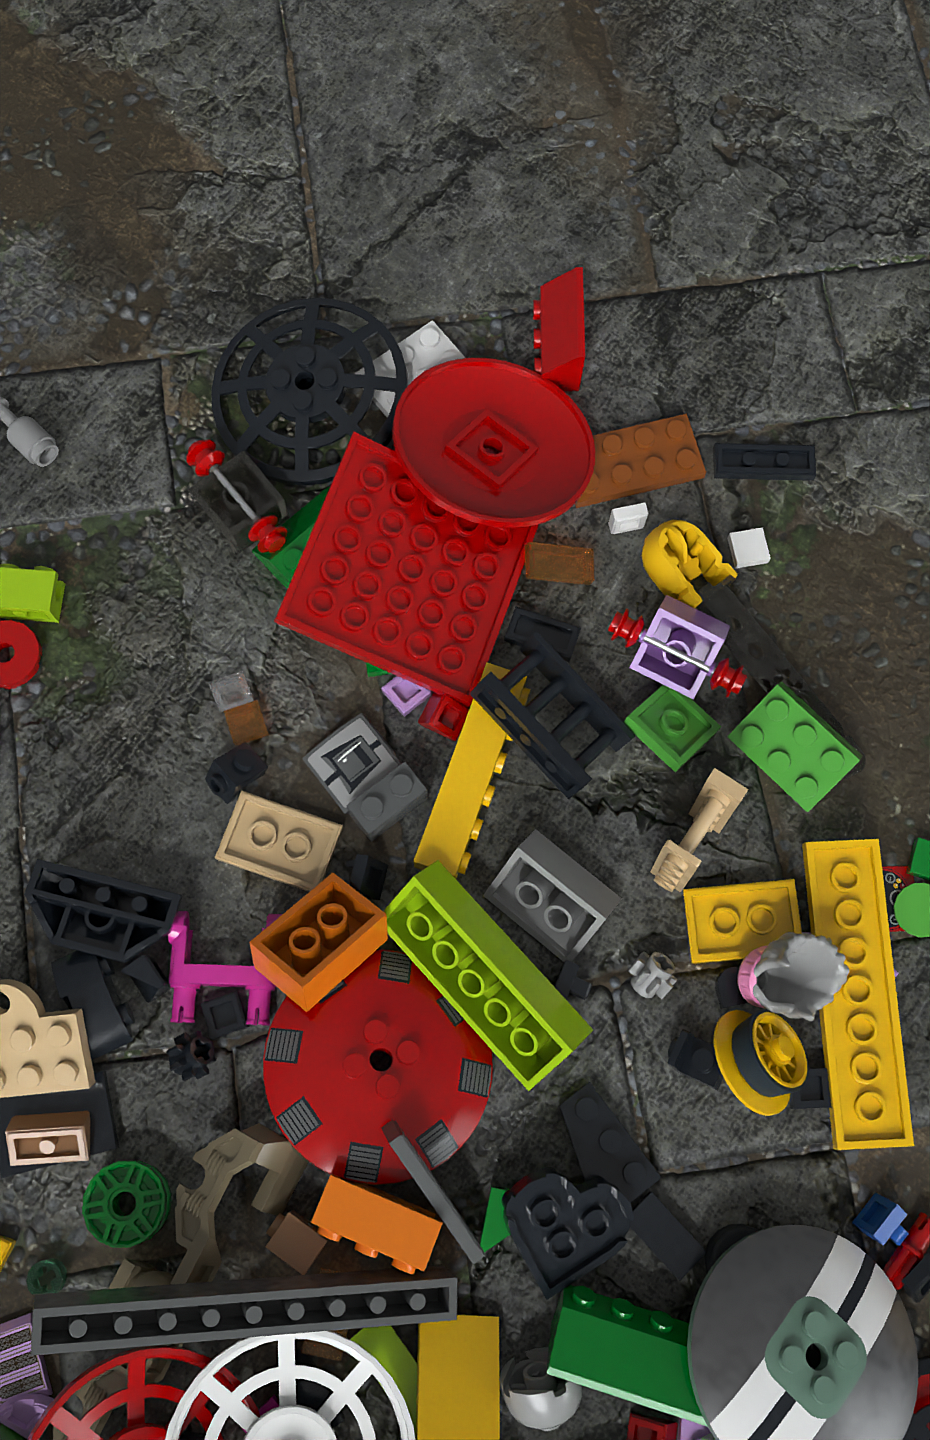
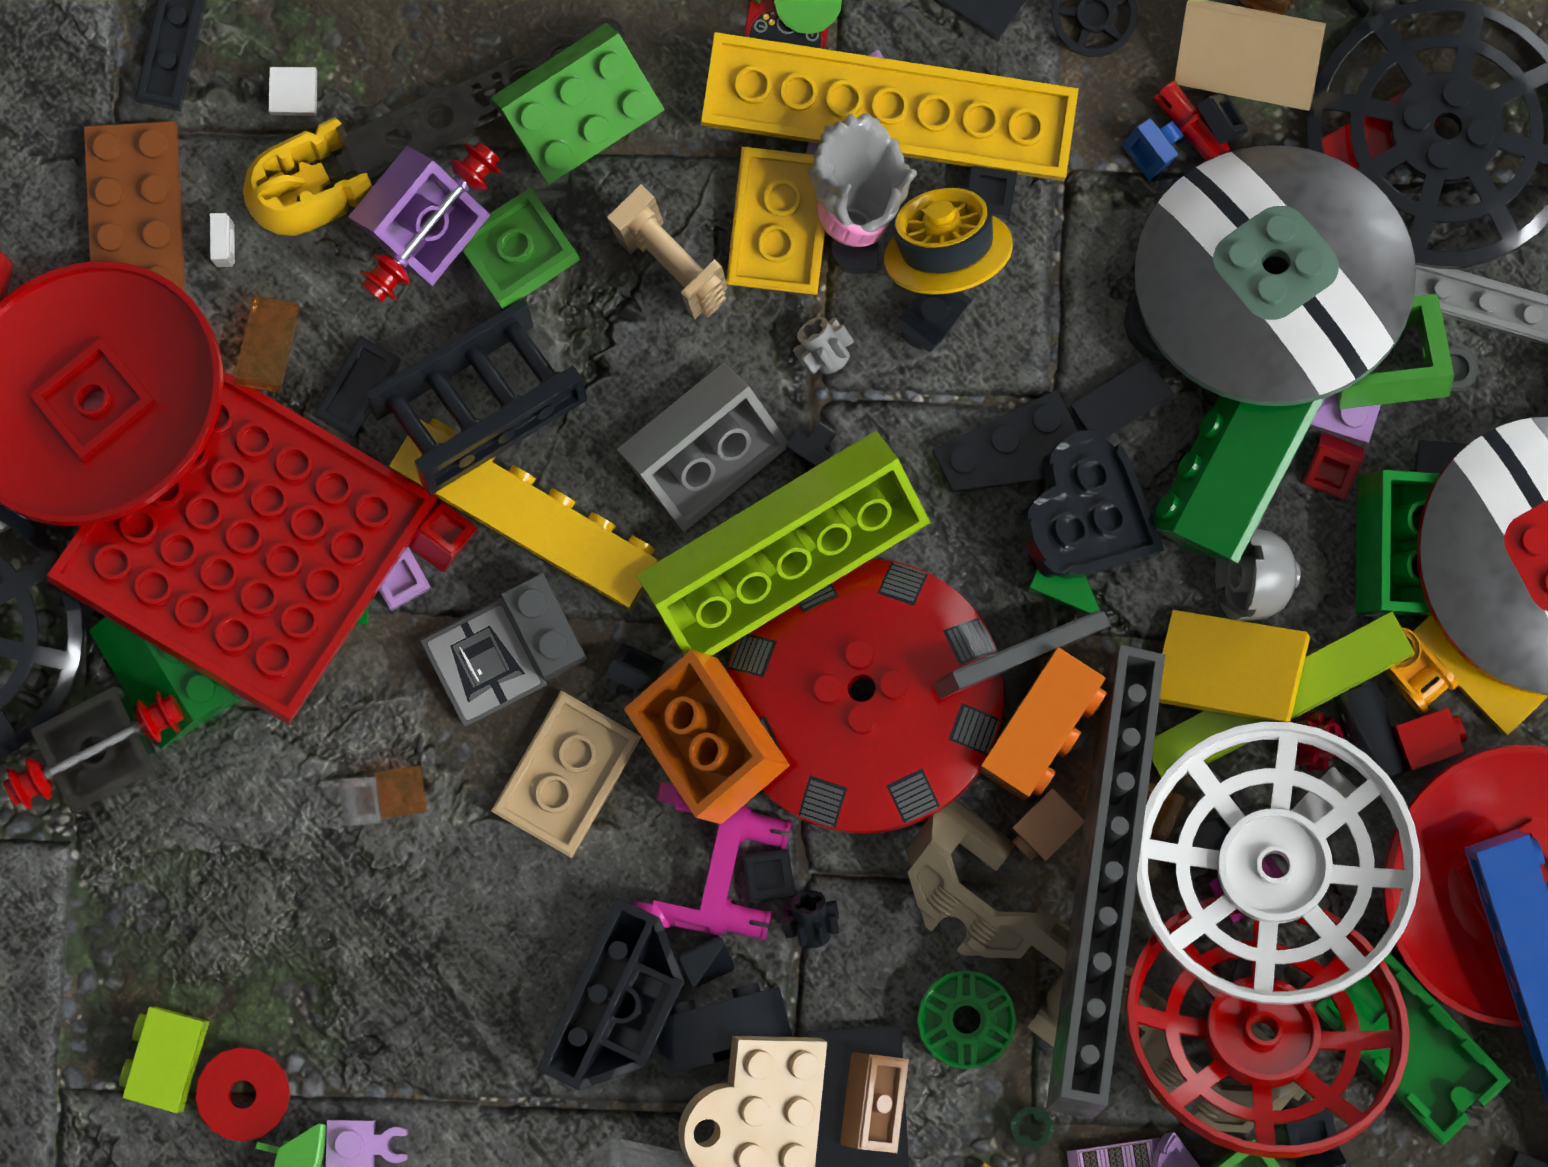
camera: 75 degrees left, 10 degrees up
(234, 771) = (465, 815): black bracket -> none

